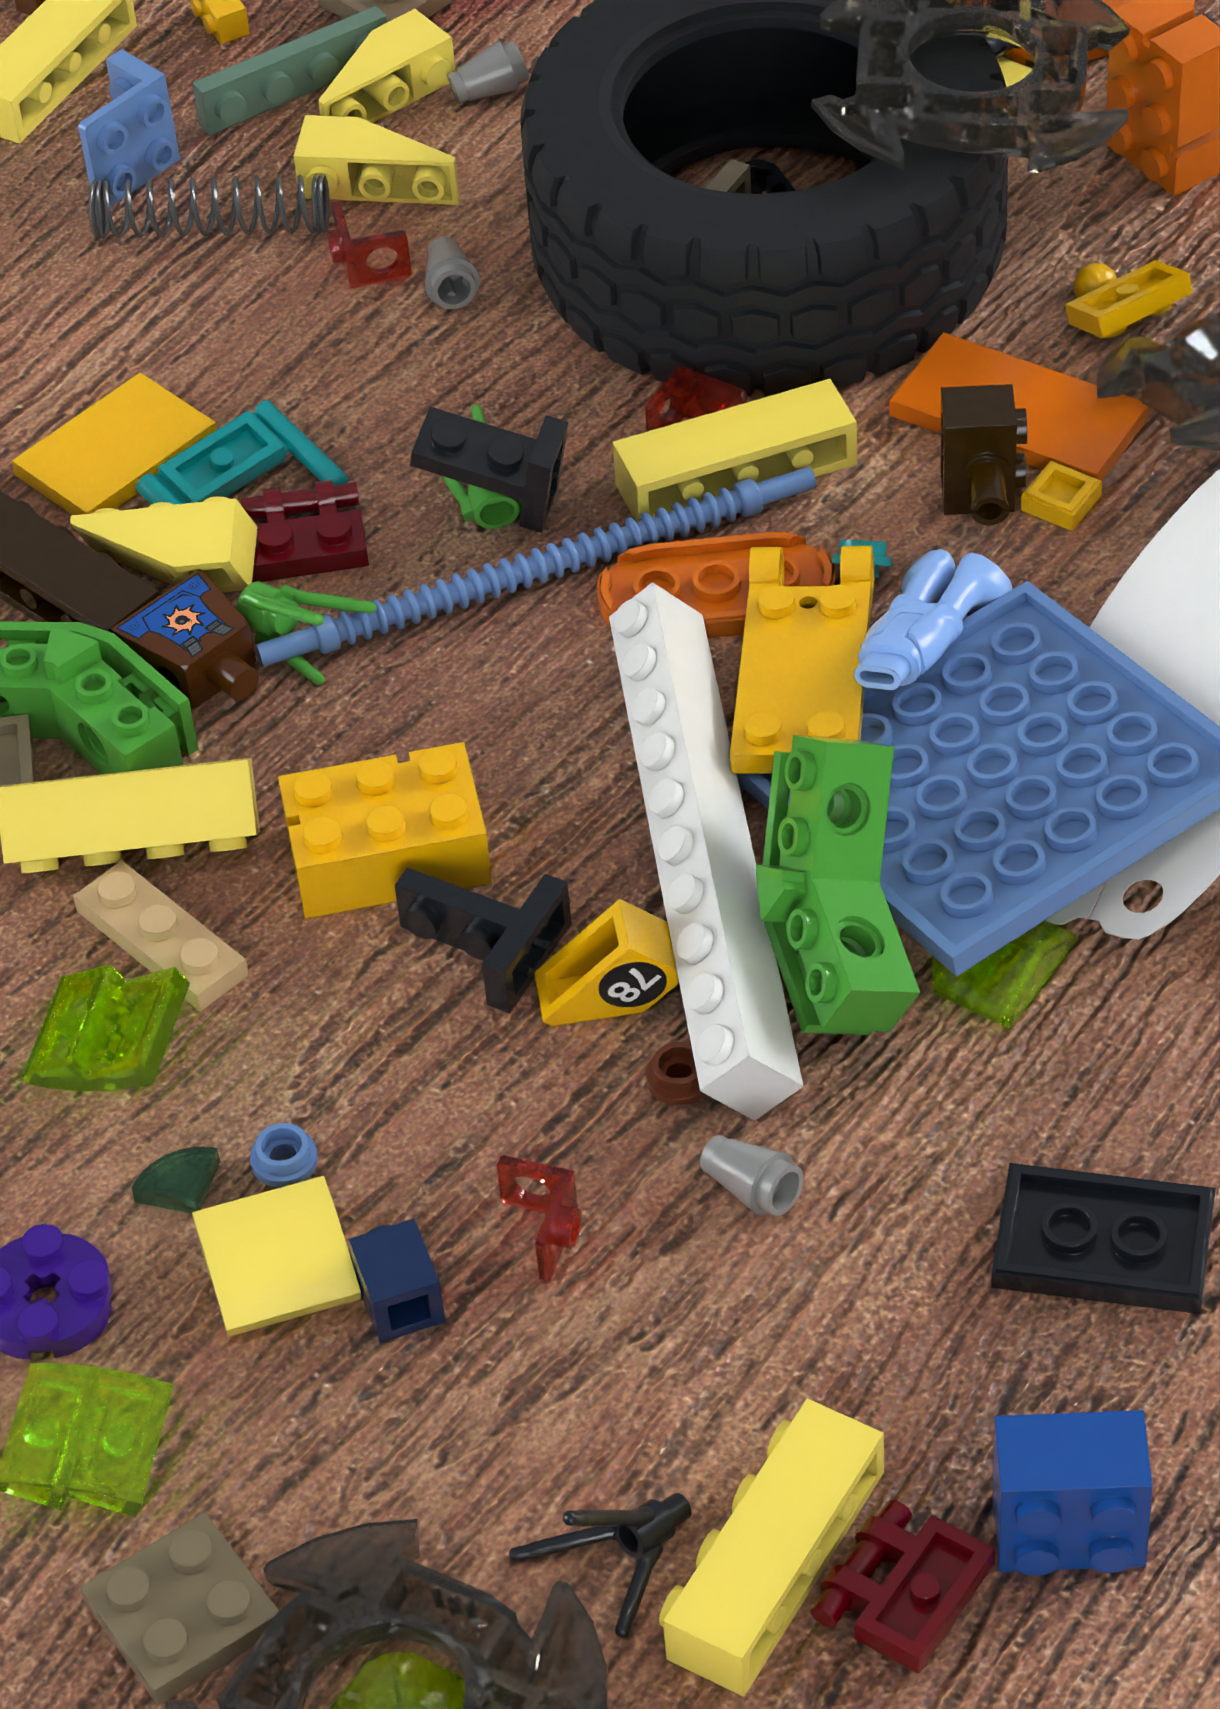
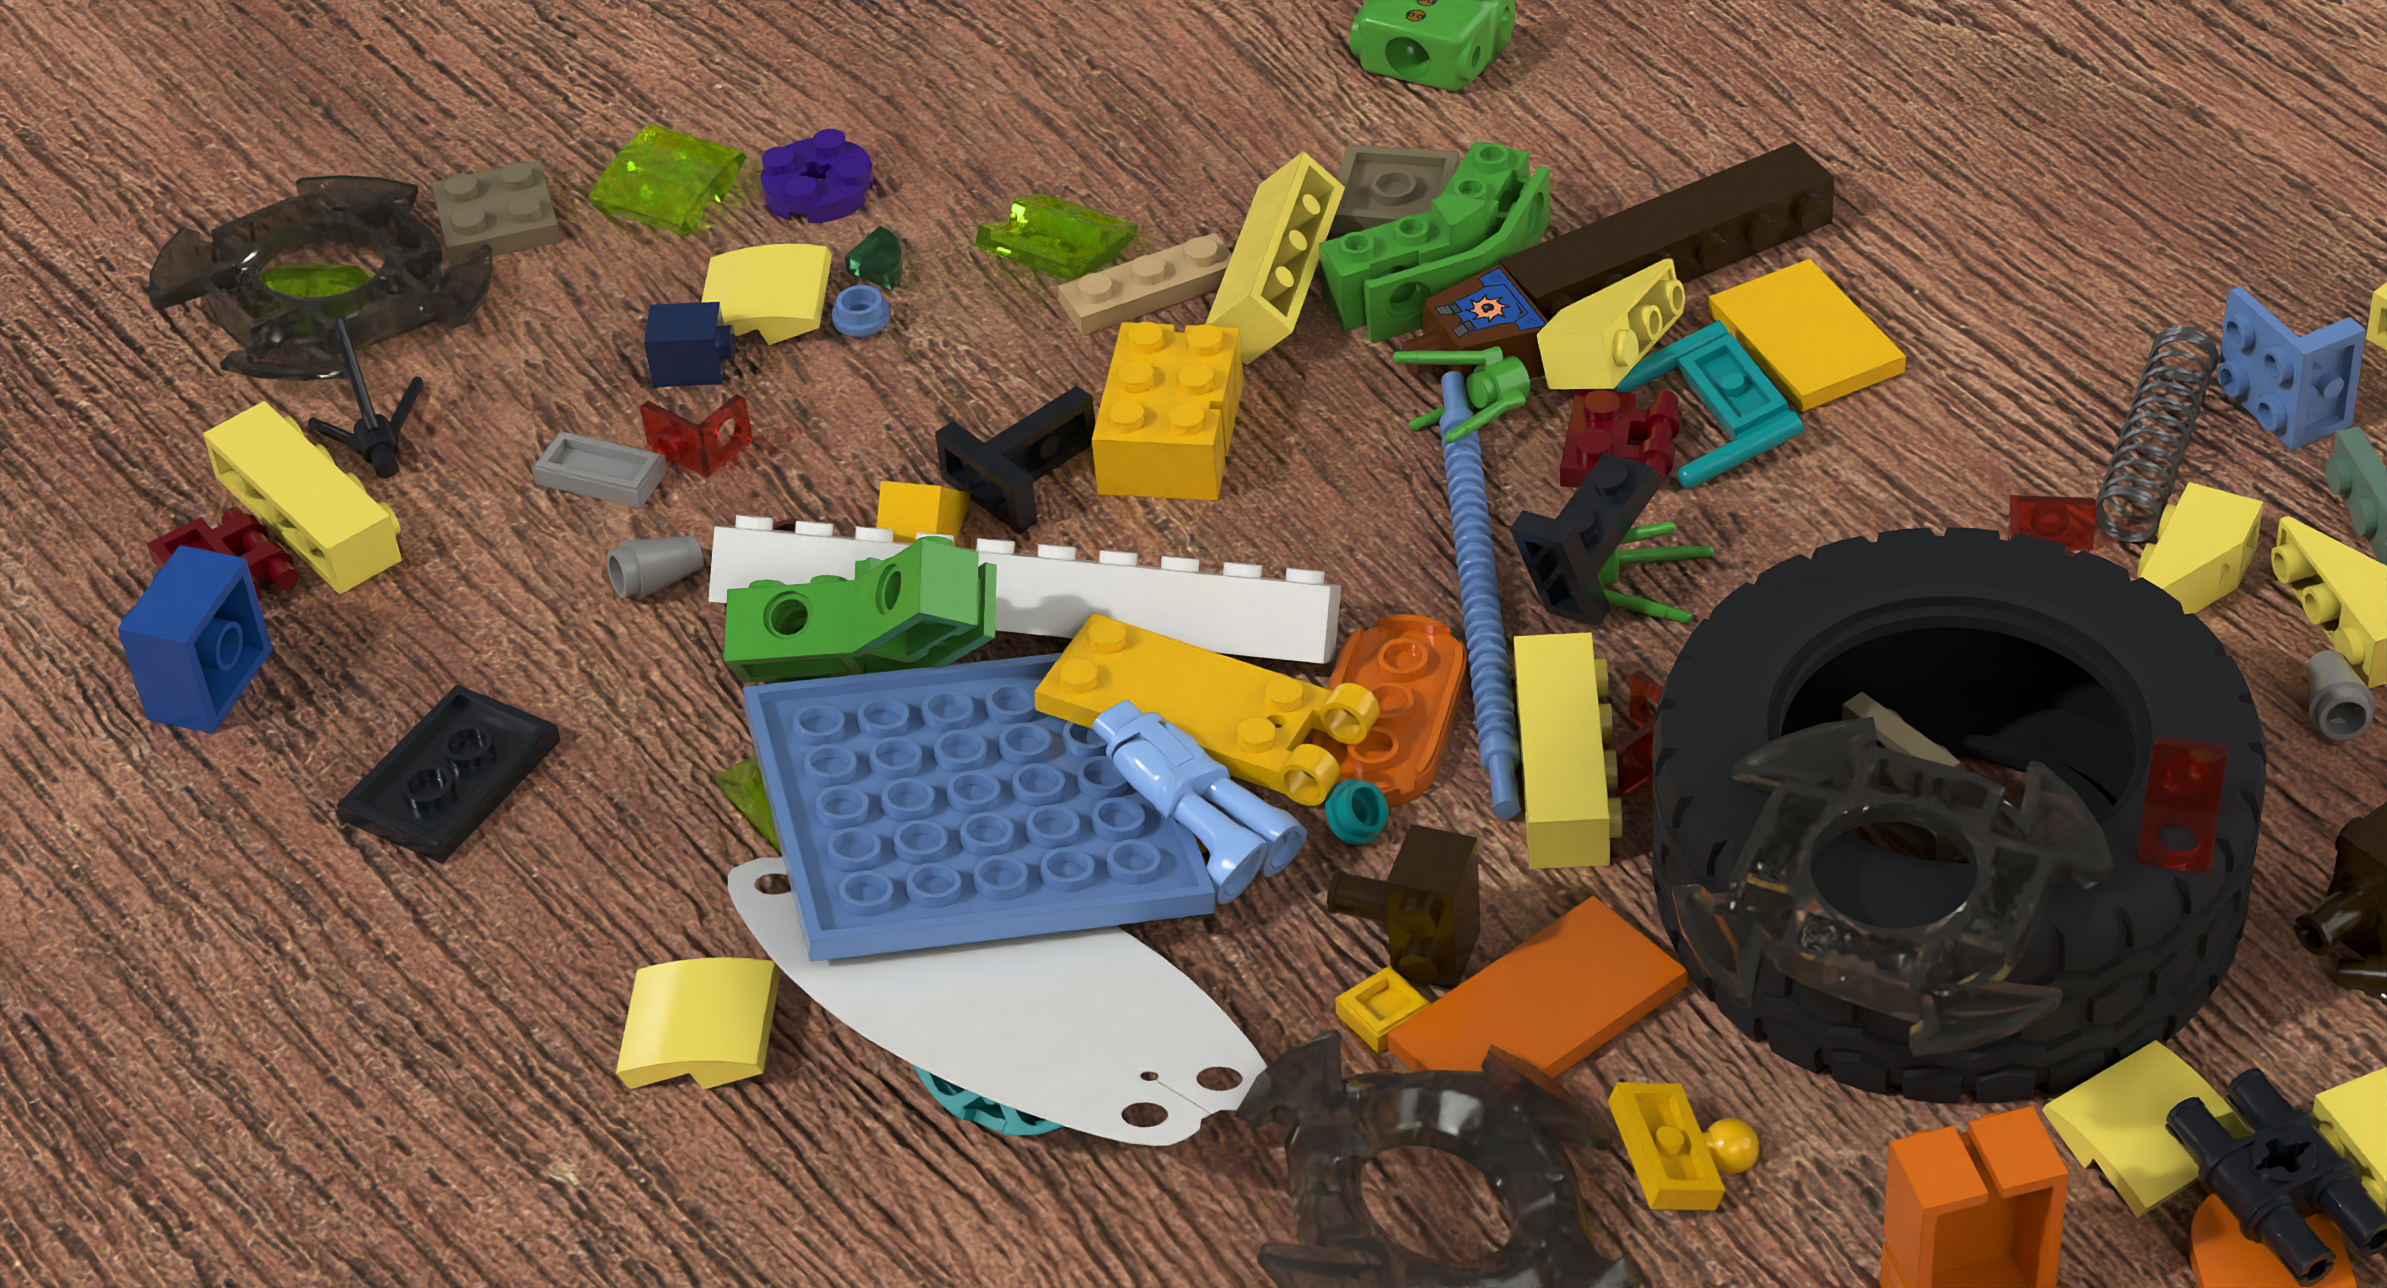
camera: 110 degrees right, 5 degrees down
(608, 1301) = (600, 469): none -> light grey tile

